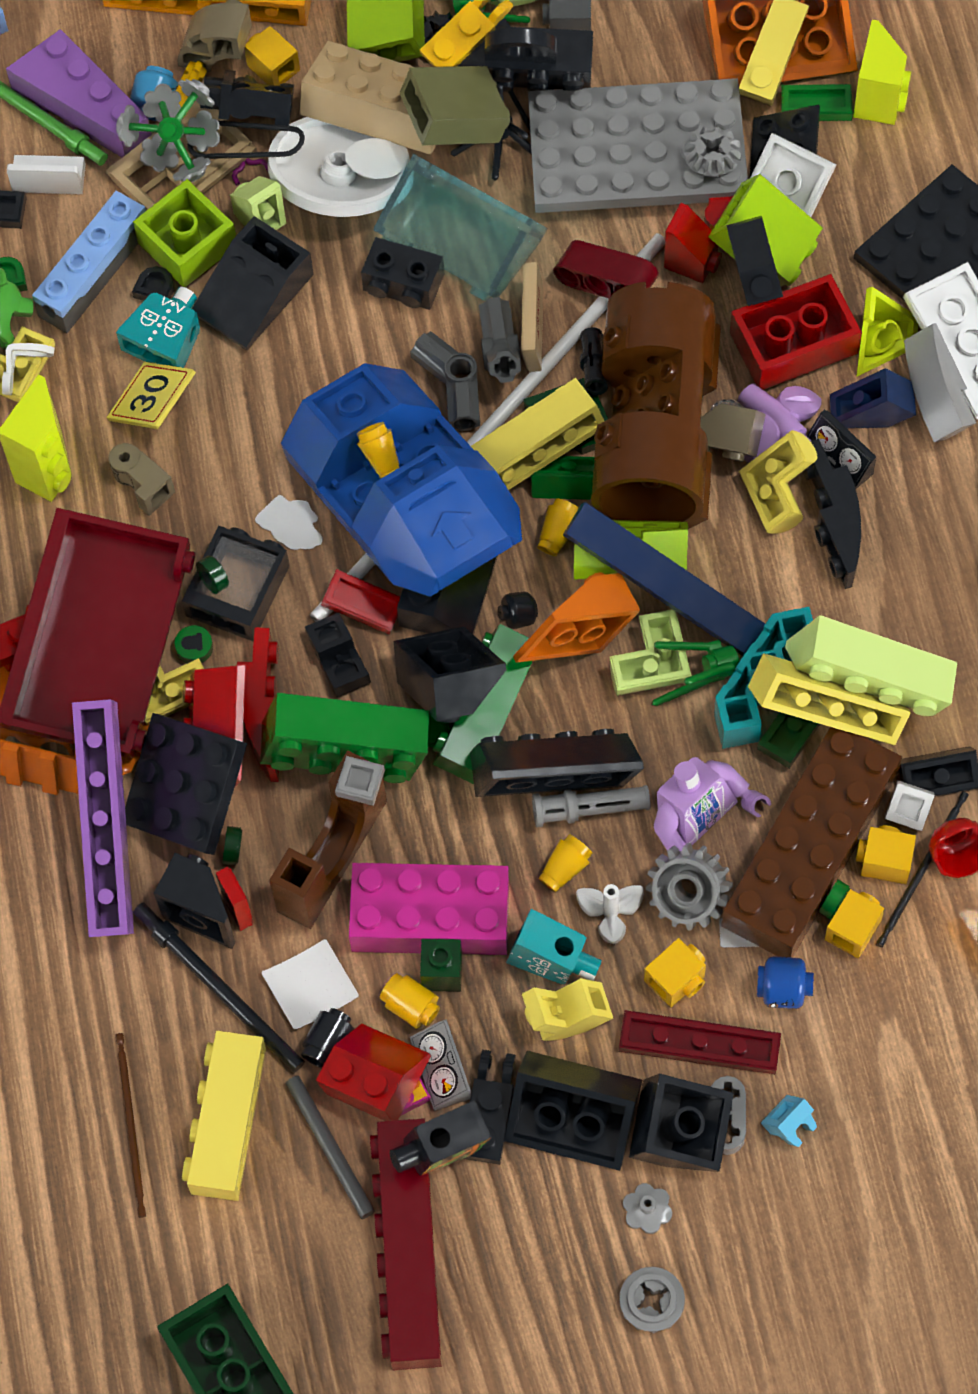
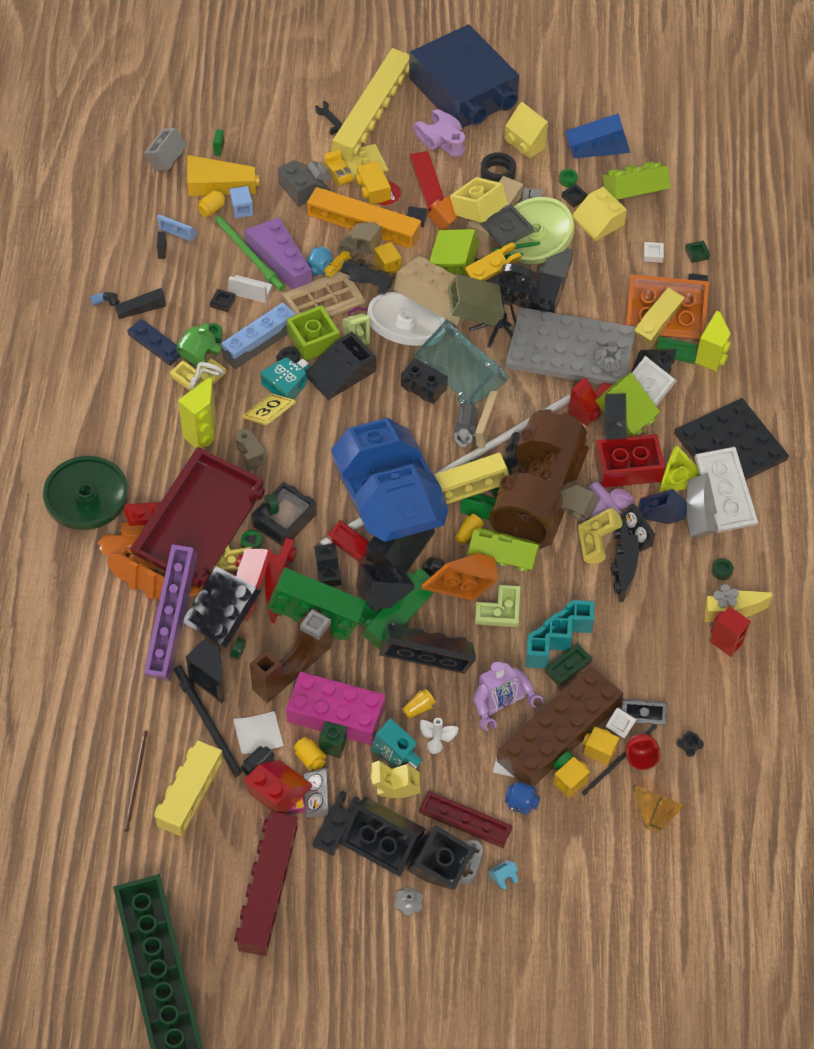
camera: 10 degrees right, 10 degrees down
(162, 149) = (322, 268): light grey plant -> none
(234, 898) = (230, 674): red tile -> none
(254, 154) = (359, 301): black piece -> none
(290, 523) = (324, 493): white sticker -> none
(330, 1147) = (241, 821): dark grey bar -> none
(376, 158) = (426, 319): white sticker -> none
(379, 448) = (381, 459): yellow cone -> none
(442, 1140) = (302, 828): black torso -> none
(444, 364) = (438, 439): dark grey piece -> none
(571, 806) = (431, 671): light grey pin -> none
(602, 269) = (526, 402): dark red beam -> none
(656, 1281) = (402, 942): light grey gear -> none
(663, 578) = (516, 566): dark blue tile -> none
(676, 972) = (463, 777): yellow brick -> none
(703, 872) = (471, 732): light grey gear -> none
(716, 666) = (533, 622): green plant -> none
(793, 692) = (590, 651): light yellow brick -> none
(873, 665) = (620, 638): yellowish green slope -> none

